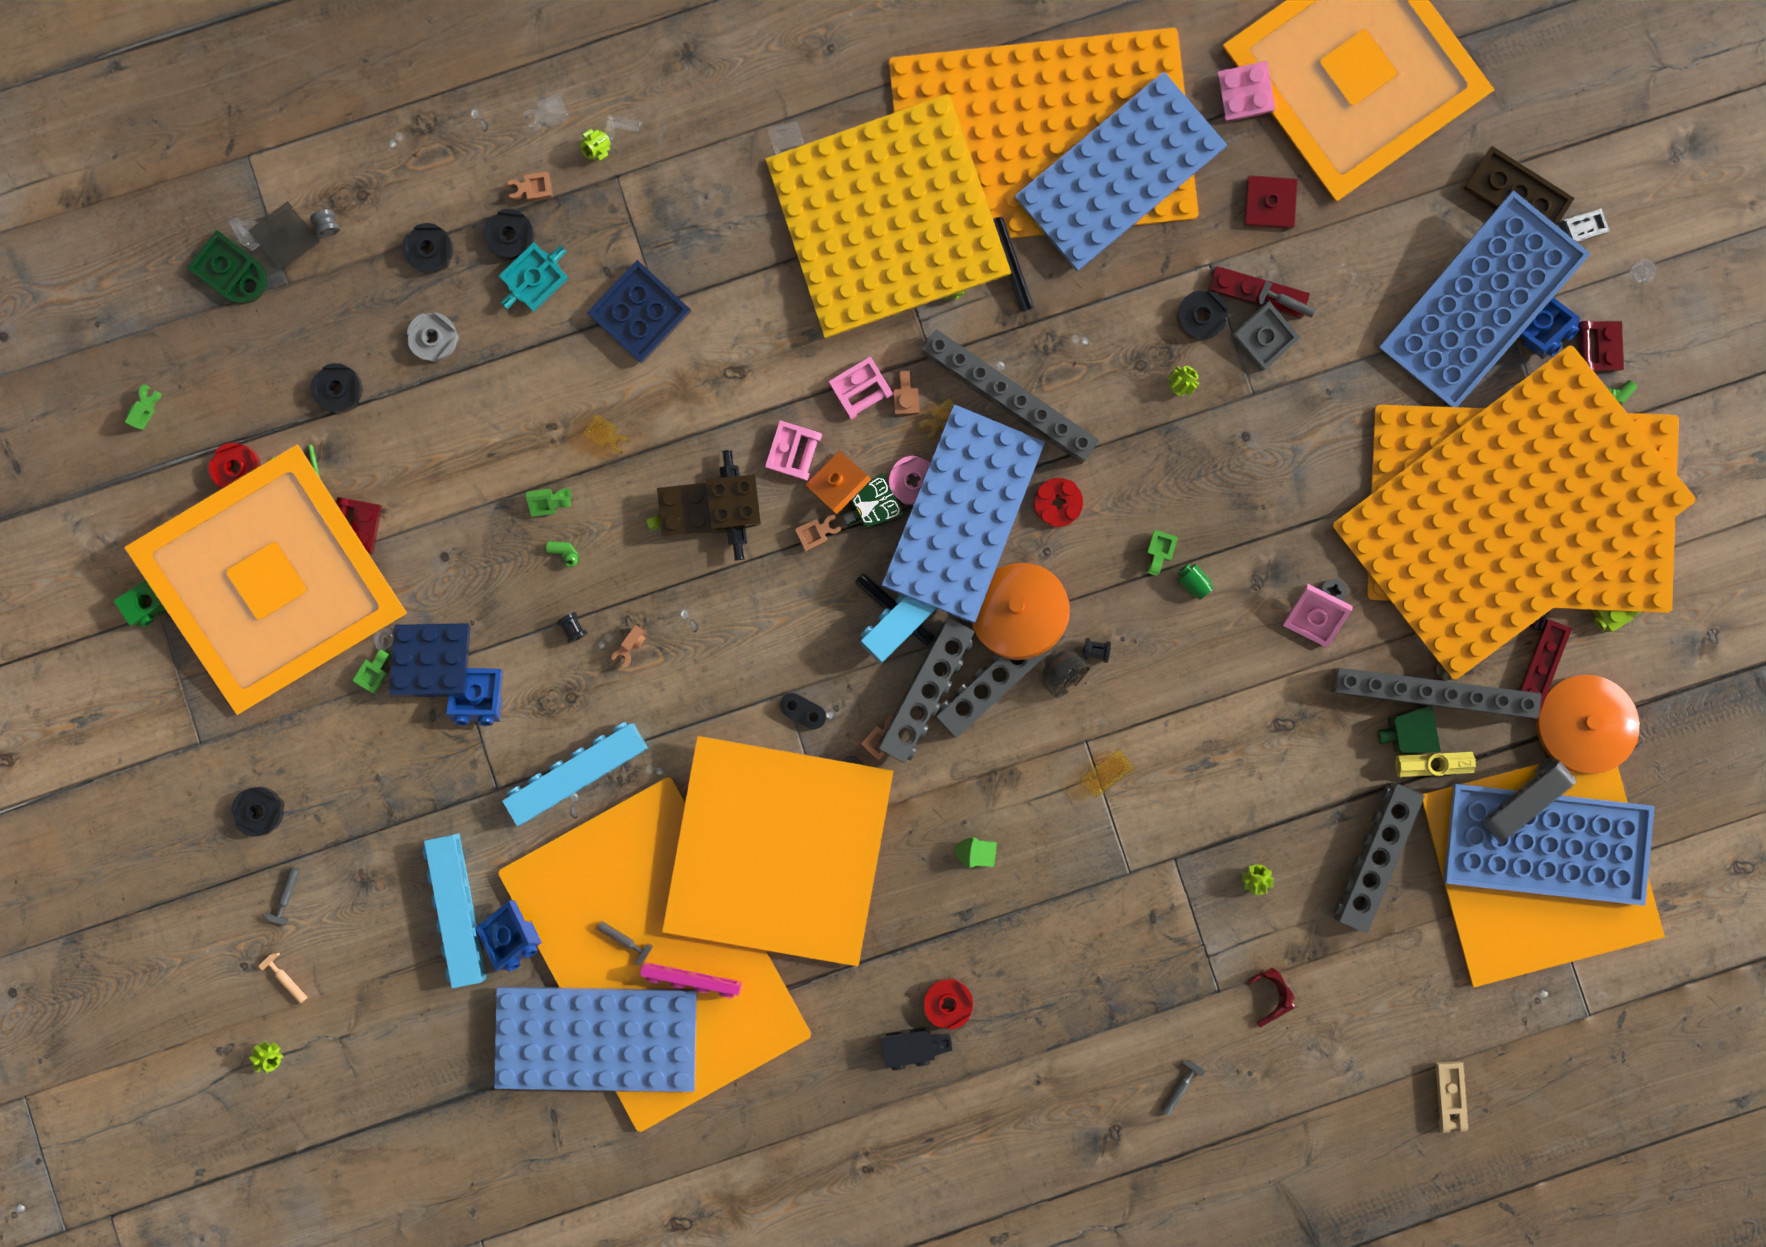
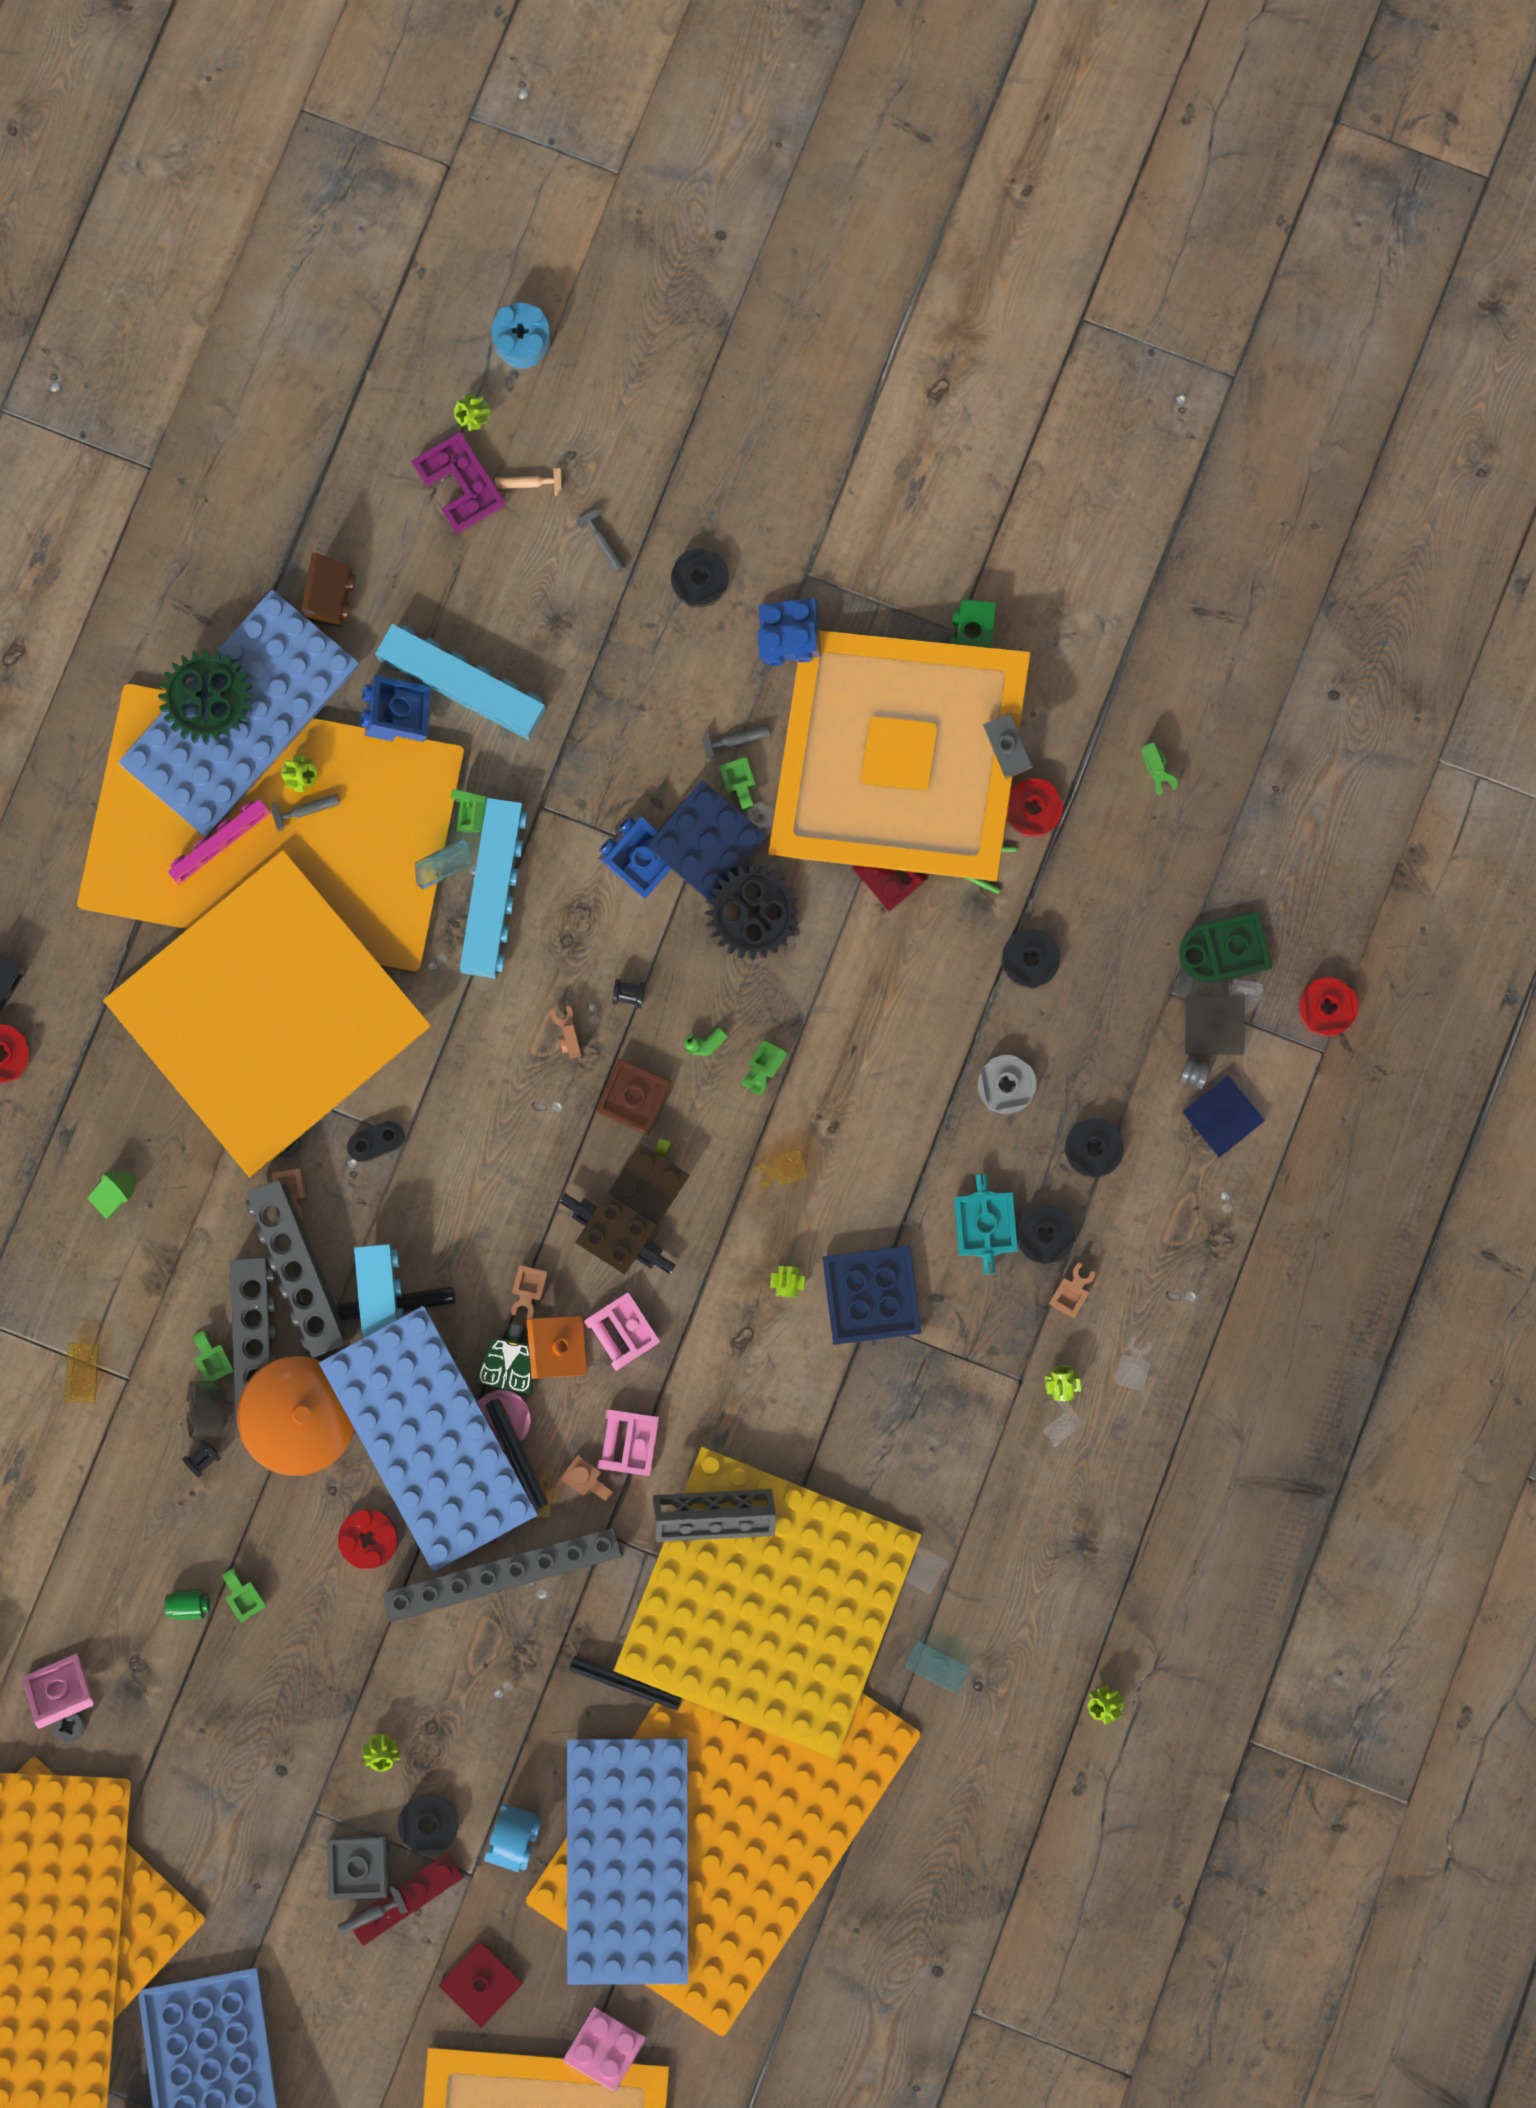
camera: 125 degrees right, 5 degrees down
(172, 1072) = (515, 320): none -> dark azure brick
(199, 509) = (1007, 746): none -> dark grey plate
(227, 176) = (1340, 1018): none -> red plate
(245, 721) = (789, 632): none -> blue plate
(306, 1038) = (480, 495): none -> magenta plate
(340, 184) = (1223, 1116): none -> clear blue plate
(348, 699) = (734, 739): none -> dark grey piece
(430, 591) = (768, 893): none -> black gear
(465, 1050) = (327, 591): none -> reddish brown slope
(536, 830) = (470, 811): none -> bright green tile
(585, 819) = (442, 864): none -> clear light blue plate
(602, 964) = (299, 773): none -> lime gear
(615, 1086) = (180, 698): none -> dark green gear
(636, 569) = (633, 1096): none -> copper plate
(674, 370) = (787, 1281): none -> lime gear
(840, 81) = (936, 1667): none -> clear light blue plate
(862, 285) = (715, 1520): none -> dark grey fence
(926, 450) = (516, 1454): none -> black axle
(1030, 695) = (214, 1361): none -> bright green plate
(1167, 251) = (511, 1838): none -> dark azure brick

